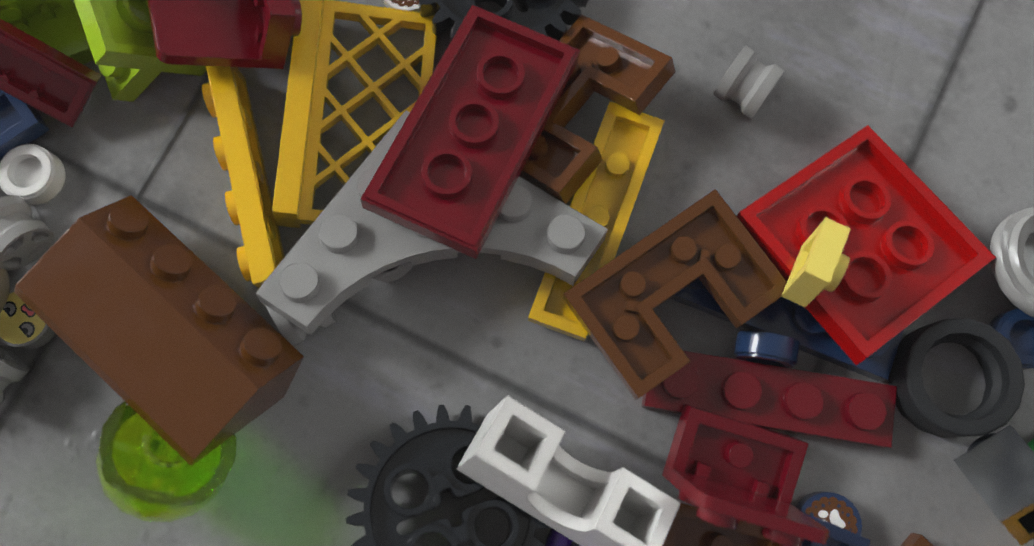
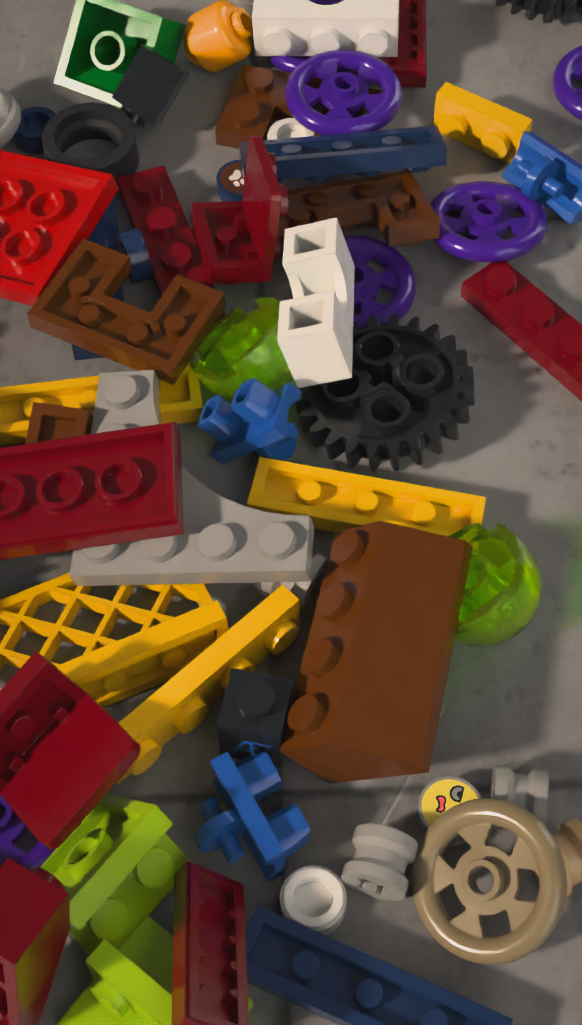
camera: 120 degrees left, 20 degrees down
(111, 144) = (240, 789): none -> blue hips
(181, 199) = (254, 715): none -> black brick
(333, 417) = (351, 500): none -> yellow plate
(476, 349) = (251, 422): none -> blue hips
(562, 381) = (243, 349): none -> clear neon green cylinder
(818, 264) = (59, 217): light yellow plate -> none

